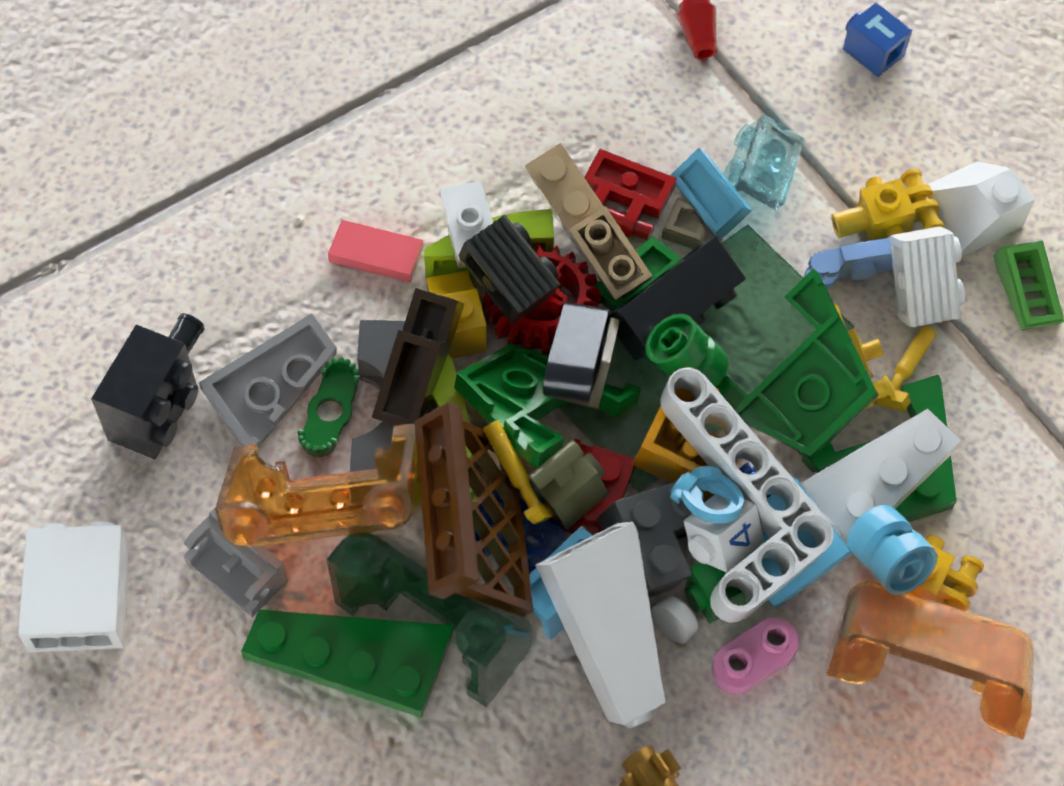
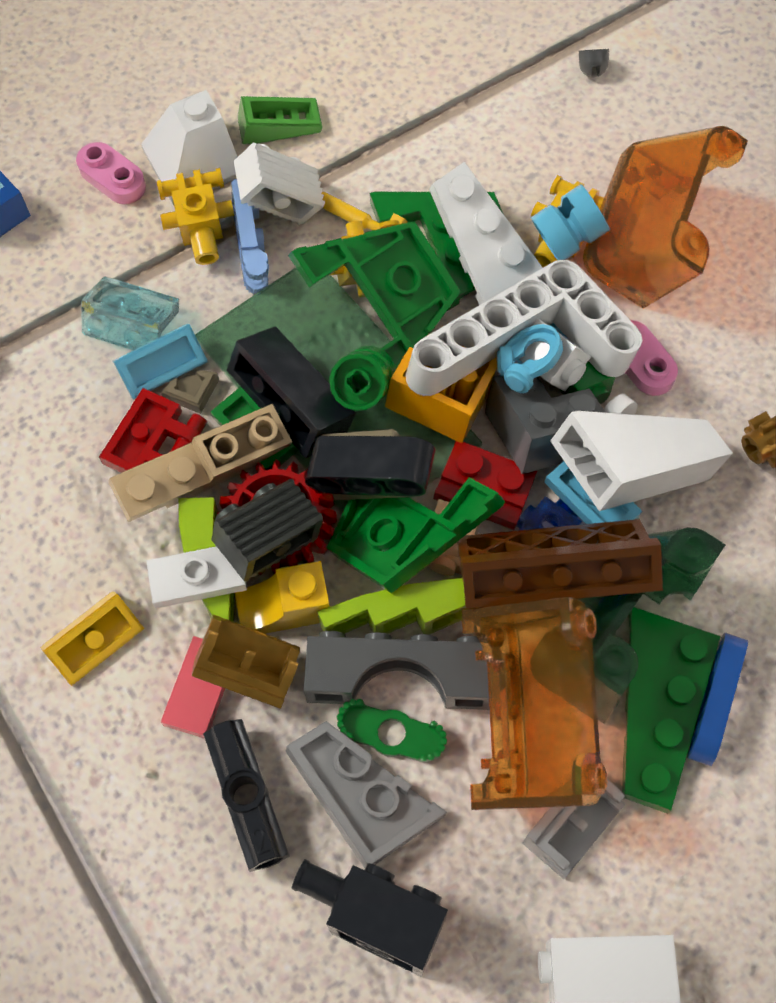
camera: 85 degrees left, 5 degrees up
(248, 293) = (255, 822): none -> black piece
(353, 702) = (717, 699): none -> blue beam
(388, 272) = (246, 661): none -> pearl gold hinge
(417, 358) = (364, 622): dark brown slope -> none
(423, 163) = (92, 637): none -> yellow slope
(516, 472) = (499, 527): yellow piece -> none
(569, 483) = (502, 478): olive brick -> none
(939, 135) = (103, 169): none -> bright pink plate

